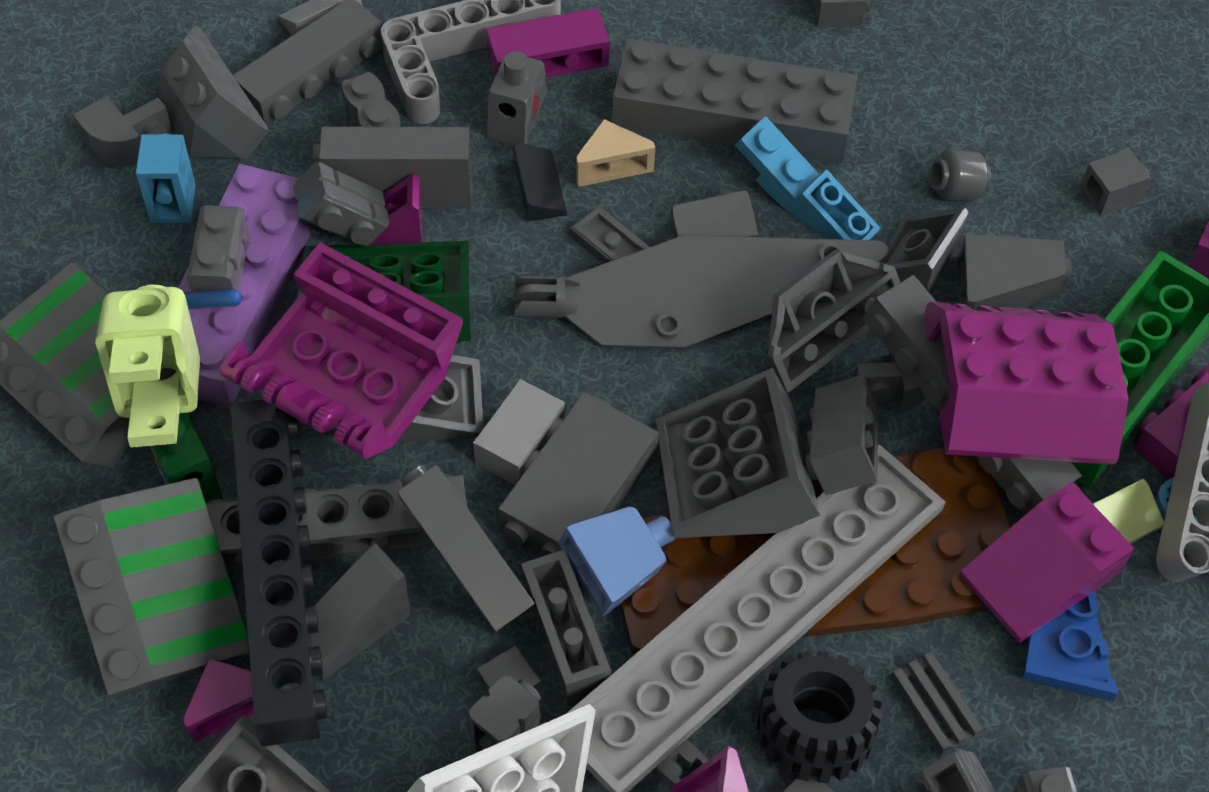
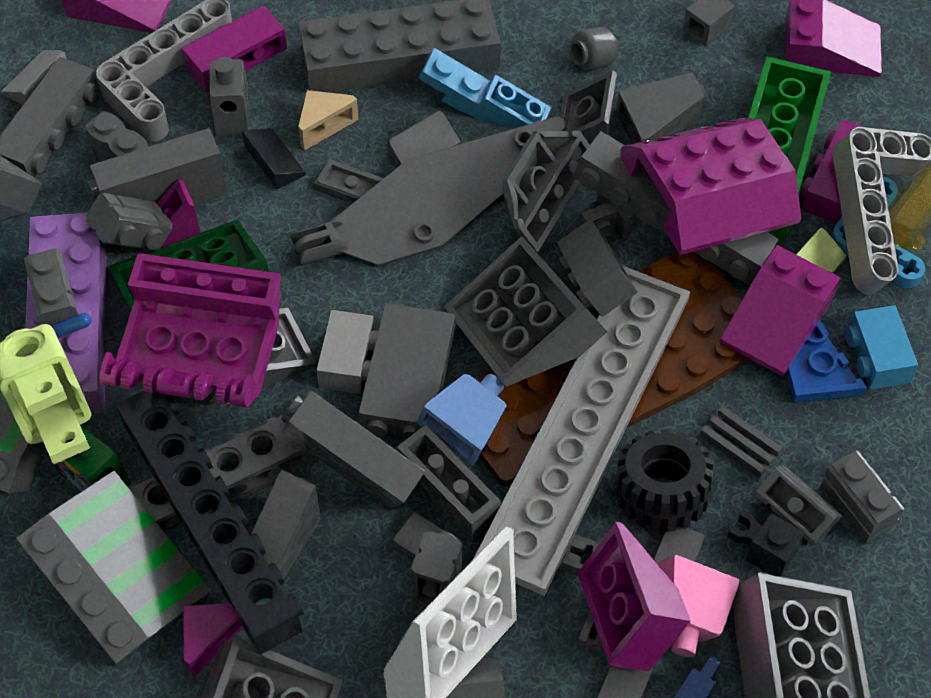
camera: 20 degrees left, 0 degrees up
(1158, 651) = (881, 347): none -> dark azure brick

